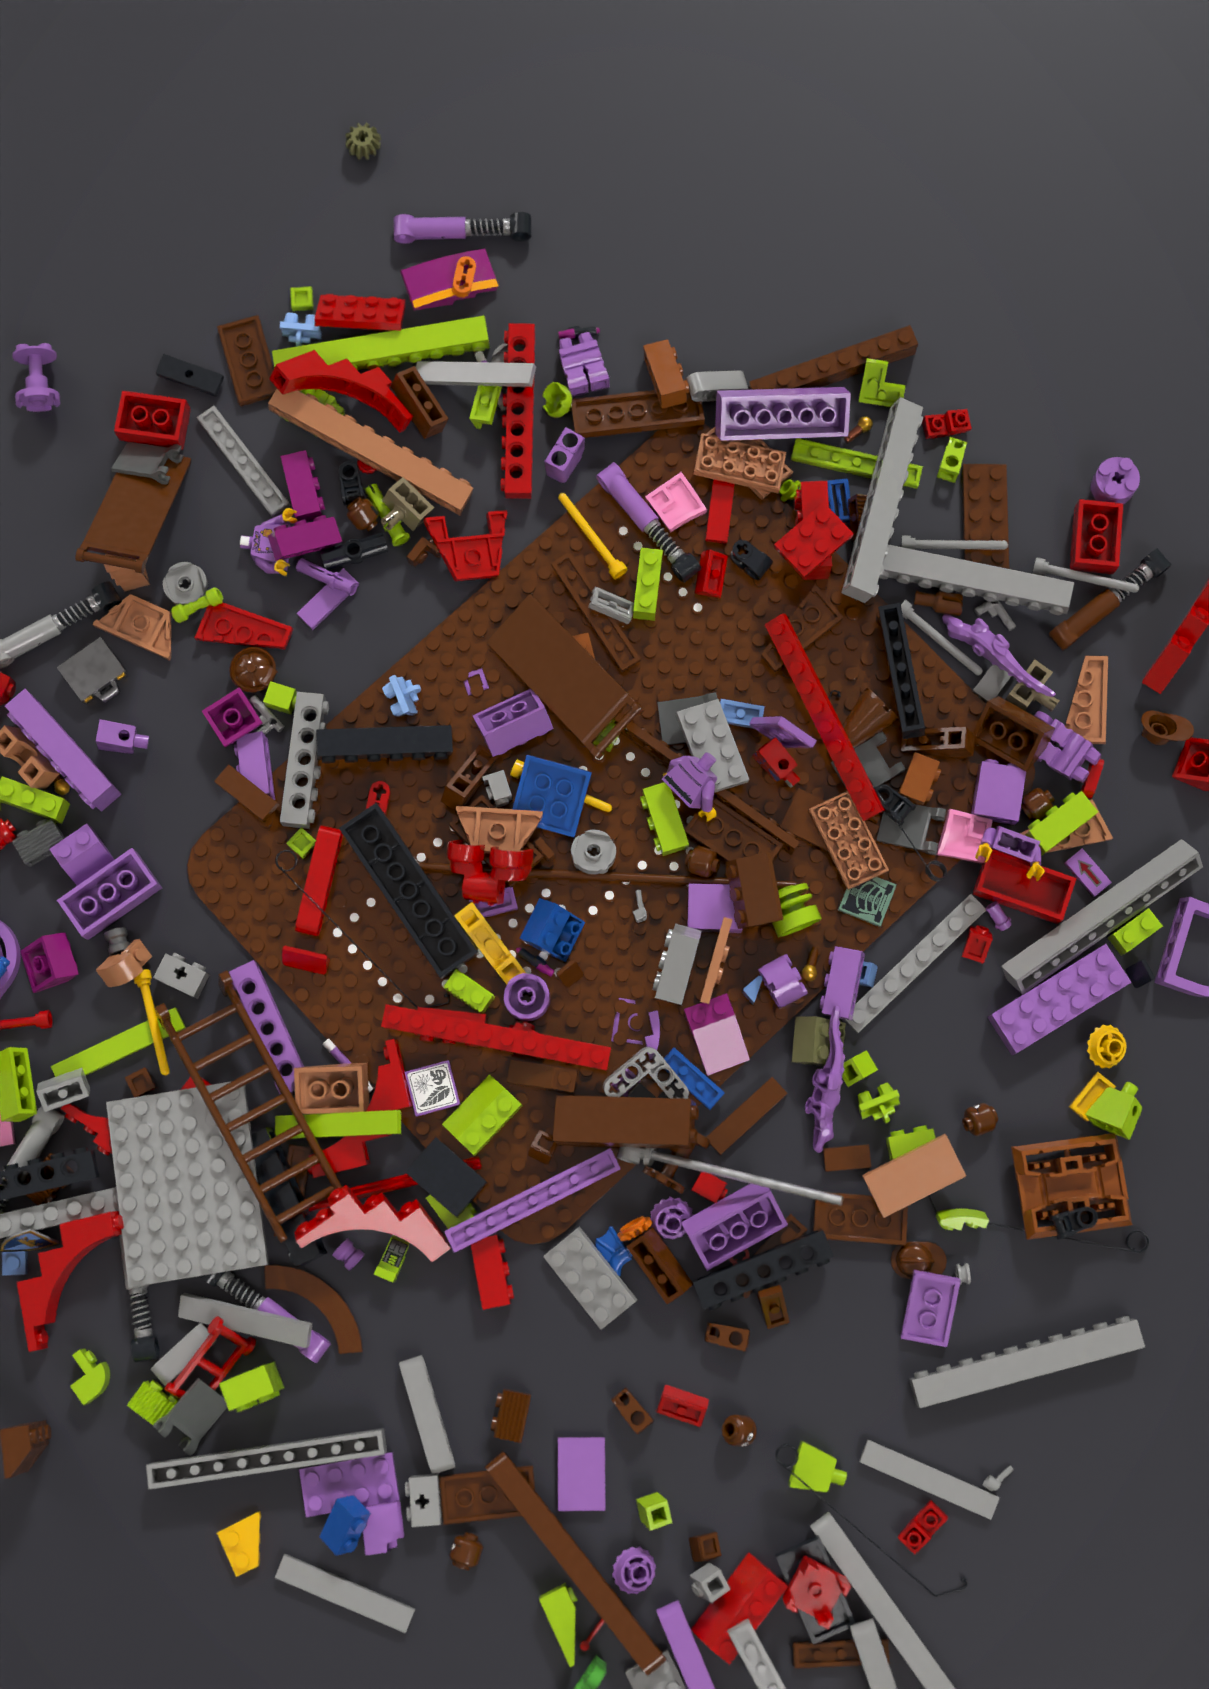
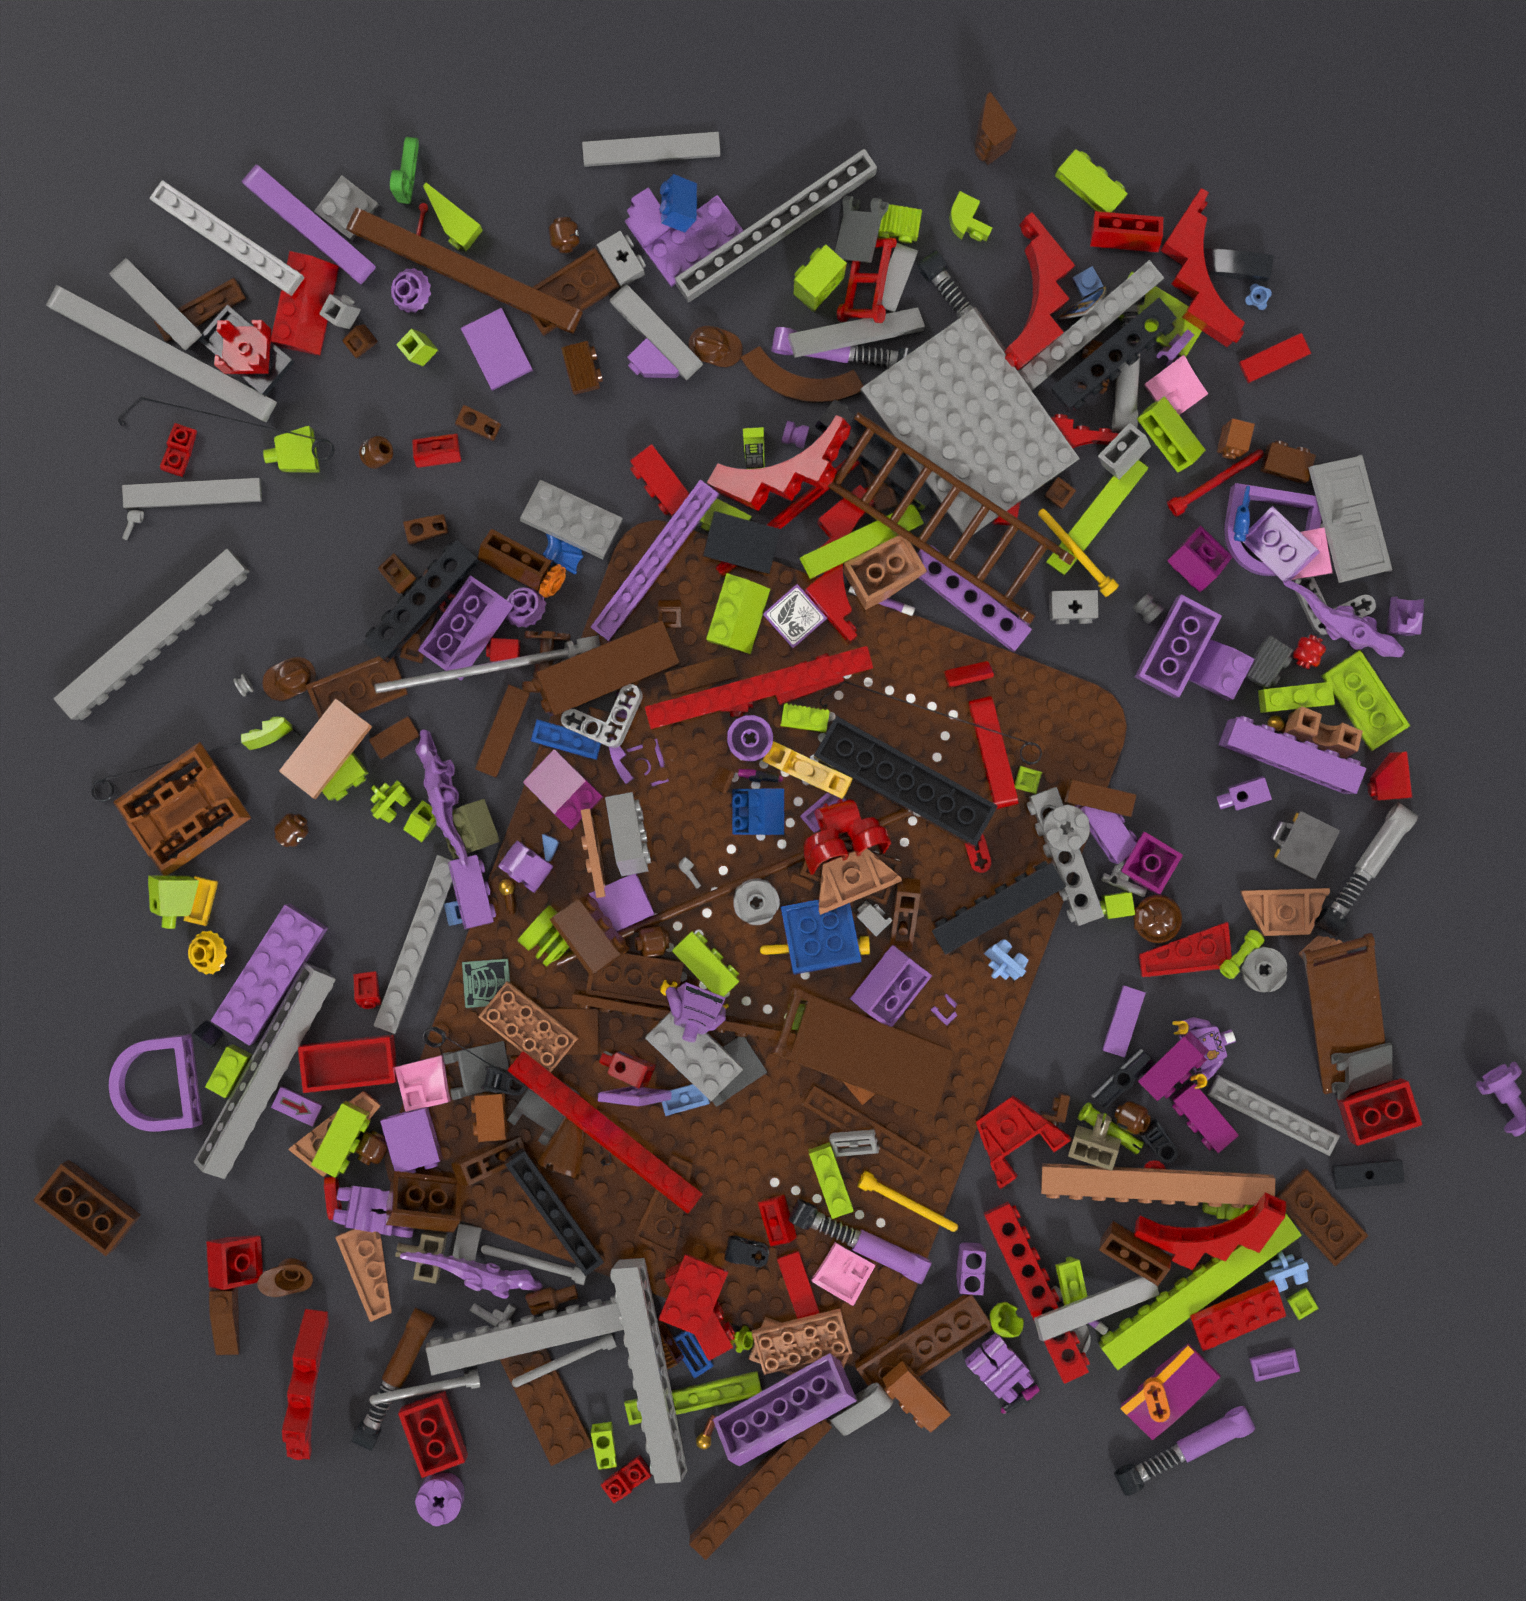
camera: 155 degrees right, 10 degrees up
(125, 966) = (1127, 587): nougat brick -> none
(242, 1543) = (761, 146): yellow wing -> none
(302, 781) = (1078, 822): none -> light grey plate
(332, 579) = (1125, 1040): medium lavender pin -> none
(351, 261) = (1274, 1364): none -> medium lavender tile
(366, 134) = (1327, 1501): olive gear -> none
(379, 1374) = (715, 346): none -> reddish brown piece
(445, 1388) = (651, 362): none -> medium lavender slope
(875, 389) = (711, 1481): lime plate -> none
(930, 1308) = (258, 640): medium lavender tile -> none
(1001, 921) = (360, 1025): medium lavender pin -> none
(1013, 844) = (376, 1095): medium lavender torso -> none
(1069, 1222) = (167, 772): black piece -> none

